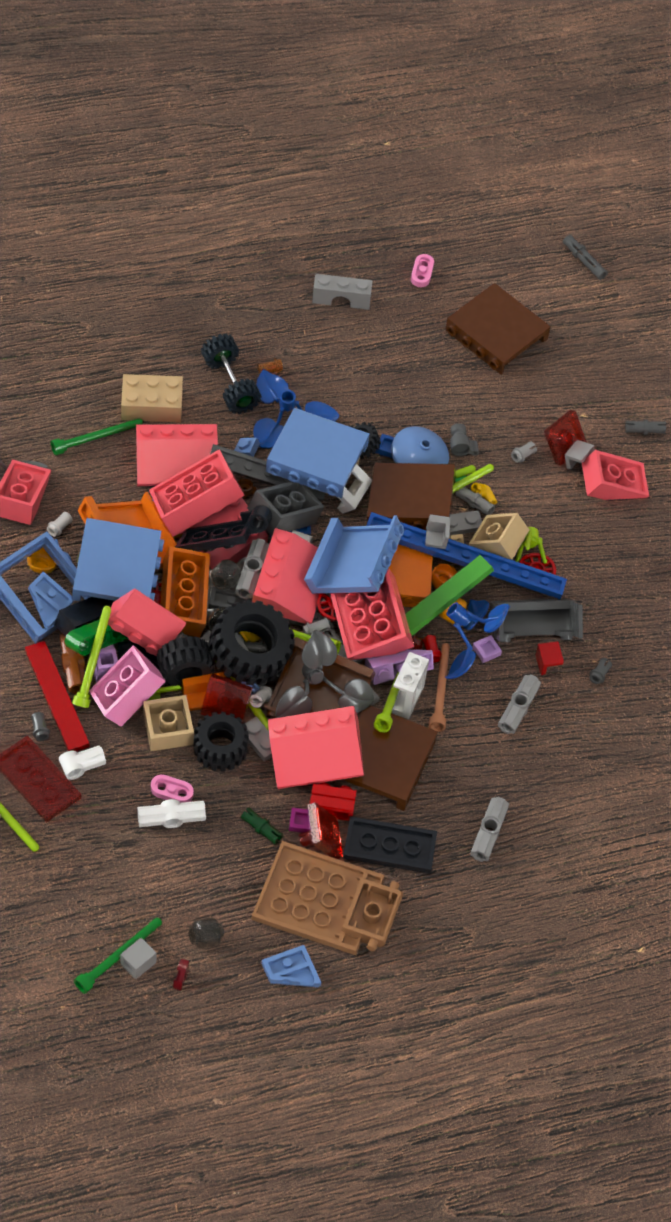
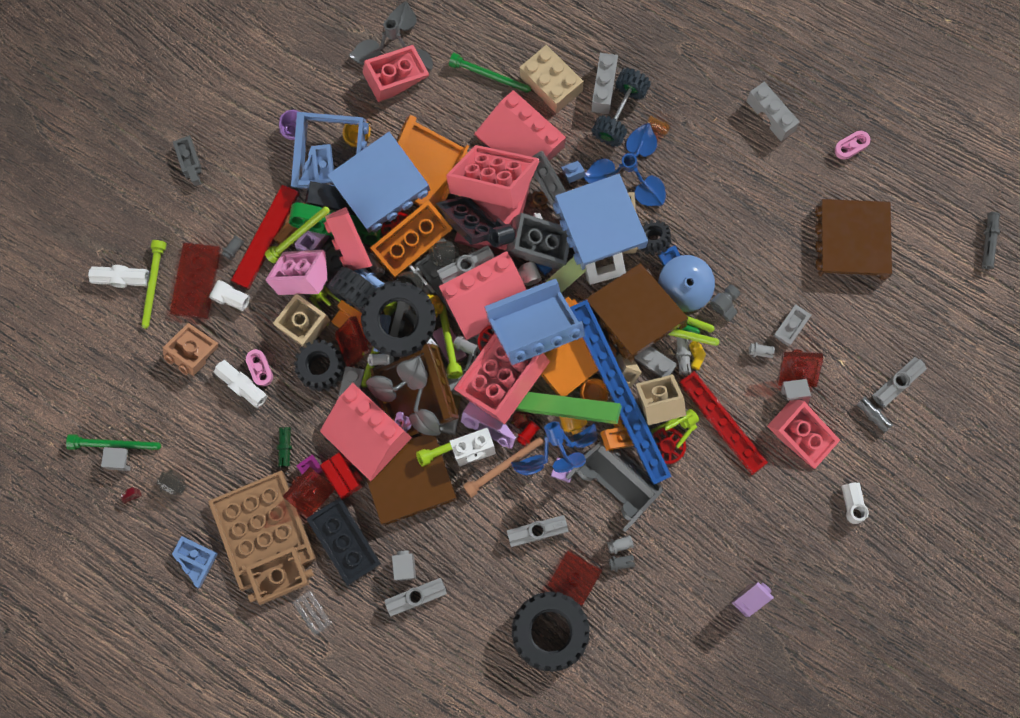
camera: 60 degrees right, 20 degrees up
(55, 527) = (395, 117): white pin -> none
(99, 827) = (189, 349): none -> nougat plate
(189, 359) = (604, 83): none -> light grey arch
(330, 510) = (567, 274): none -> yellowish green slope
(426, 921) = (321, 626): none -> clear tile
(437, 531) = (612, 358): light grey panel -> none
(457, 815) = (403, 566): none -> light grey brick
(497, 589) = (616, 437): none -> orange plate
(524, 418) = (792, 325): none -> light grey plate
(548, 655) = (596, 518): red panel -> none
(562, 521) = (723, 423): none -> red tile
(581, 712) = (575, 577): none -> clear red tile
(582, 665) = (620, 544): none -> light grey pin
(606, 778) = (577, 622): none -> black tyre
(636, 392) = (907, 375): none -> light grey piece

